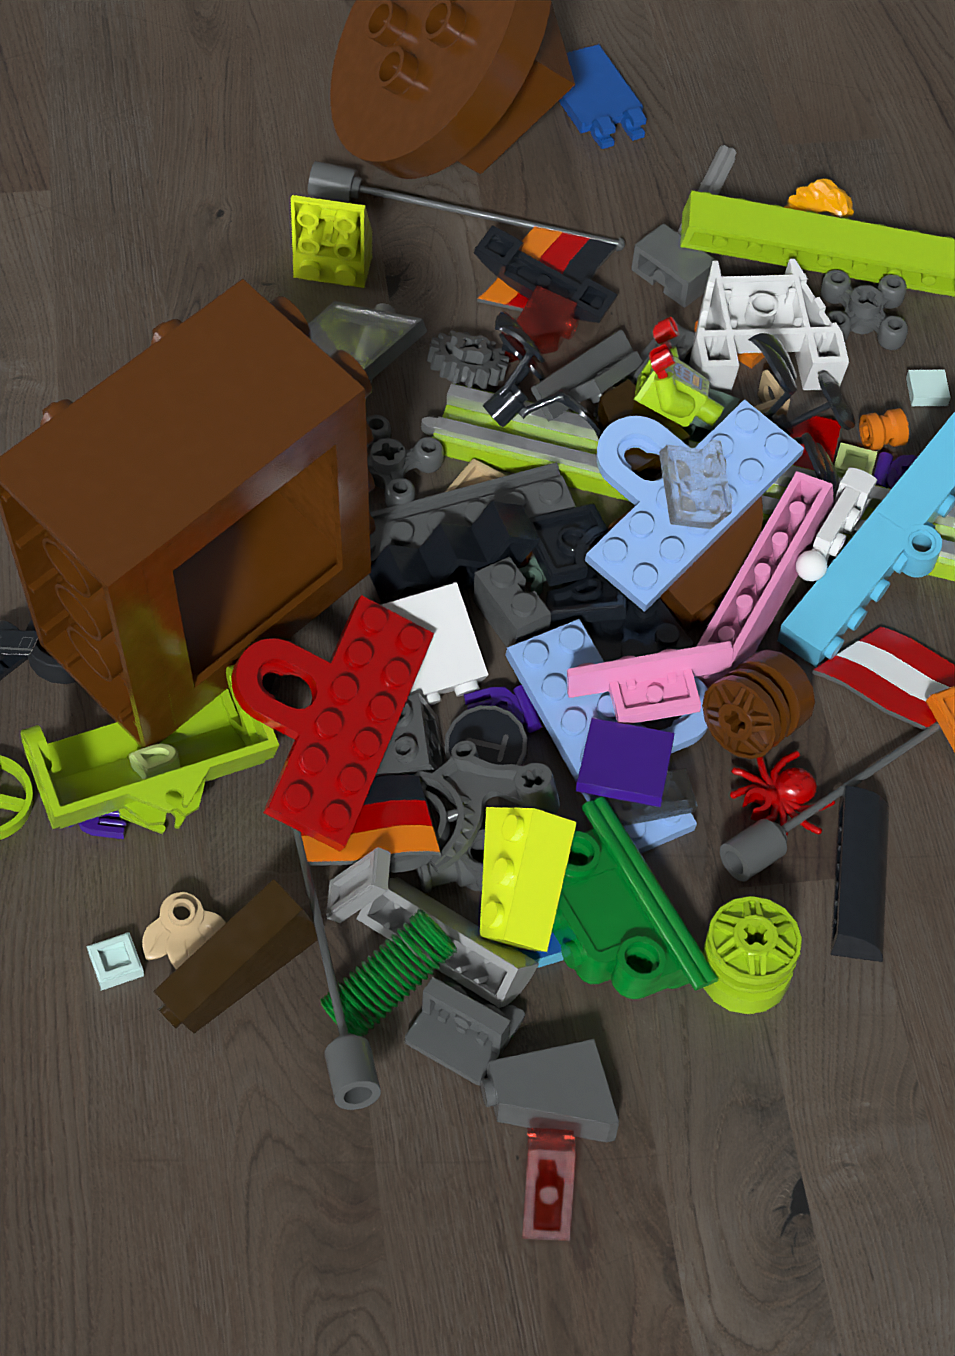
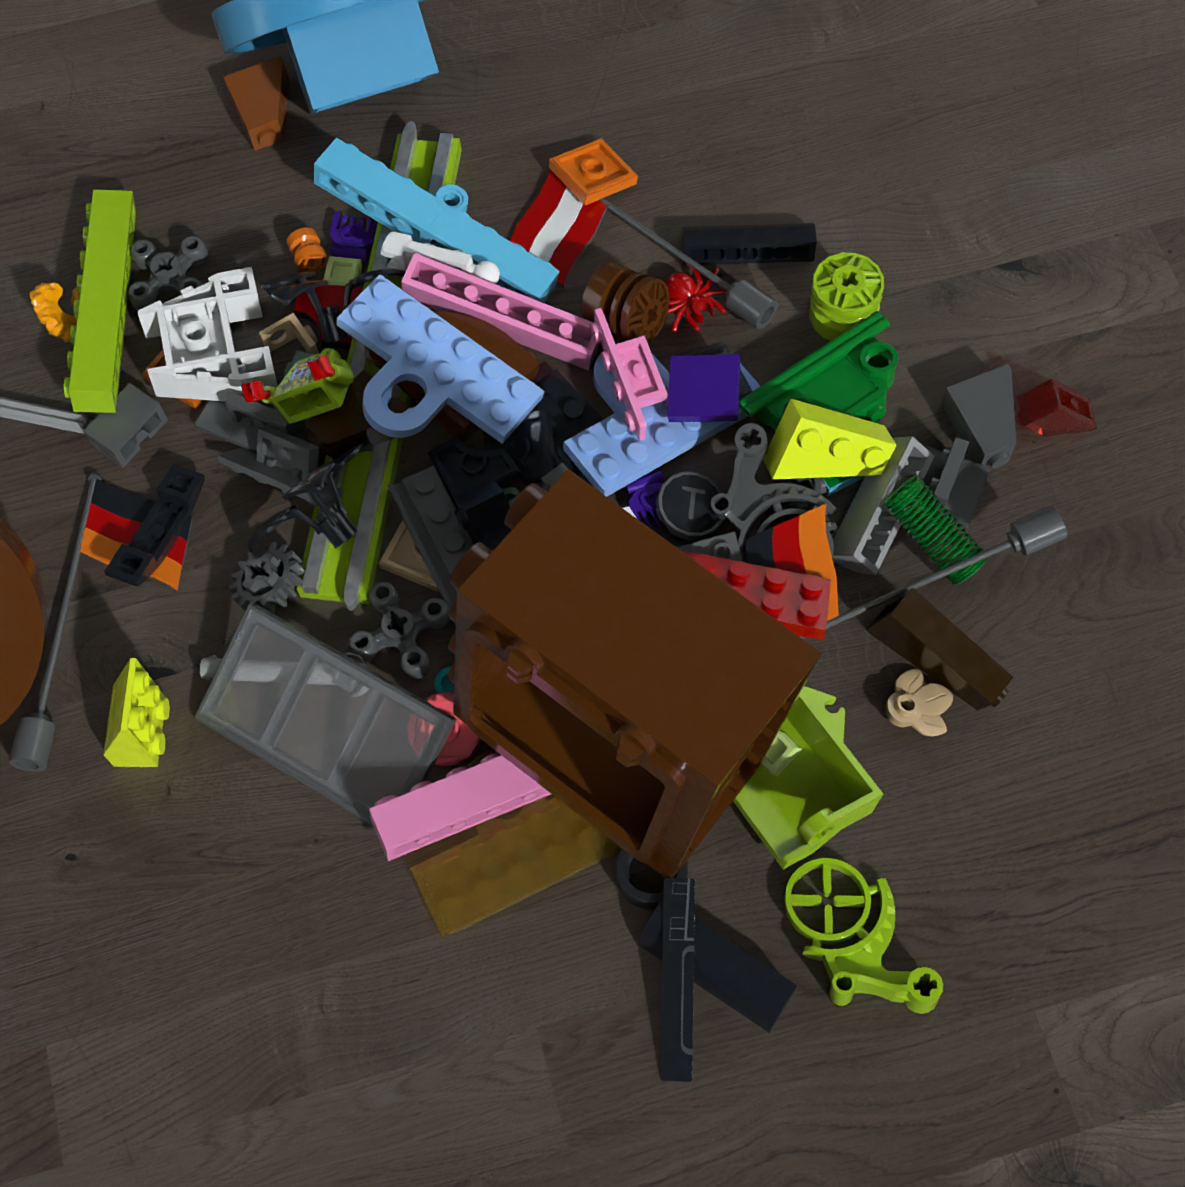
camera: 90 degrees left, 10 degrees up
(115, 961) = (954, 755): light aqua tile -> none
(358, 885) = (855, 569): light grey tile -> none
(547, 321) = (214, 525): clear red slope -> none
(696, 485) = (440, 341): clear bracket -> none
(928, 388) = (249, 226): light aqua tile -> none

